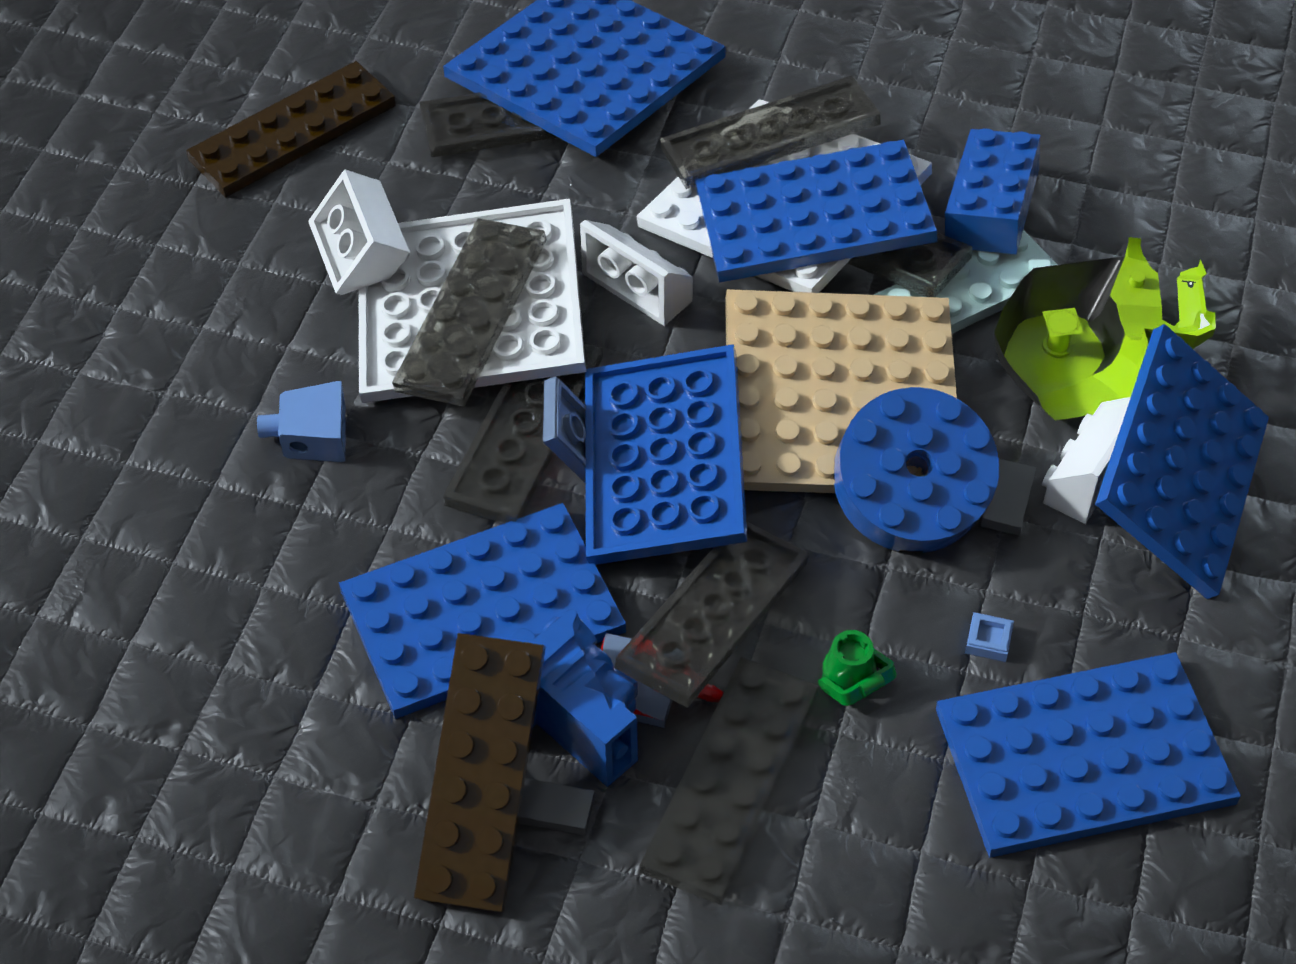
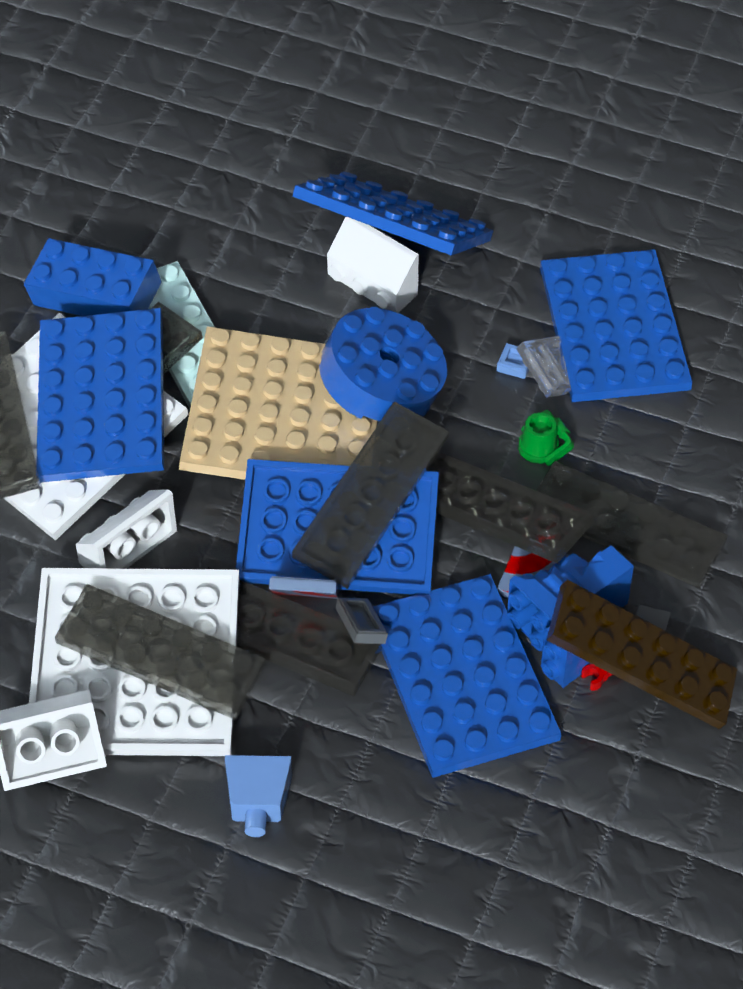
camera: 85 degrees left, 0 degrees up
(535, 492) = (361, 620): none -> dark grey tile
(697, 464) = (370, 495): none -> clear smoke plate
(980, 664) = (546, 365): none -> clear wing
(1084, 327) = (259, 253): lime piece -> none

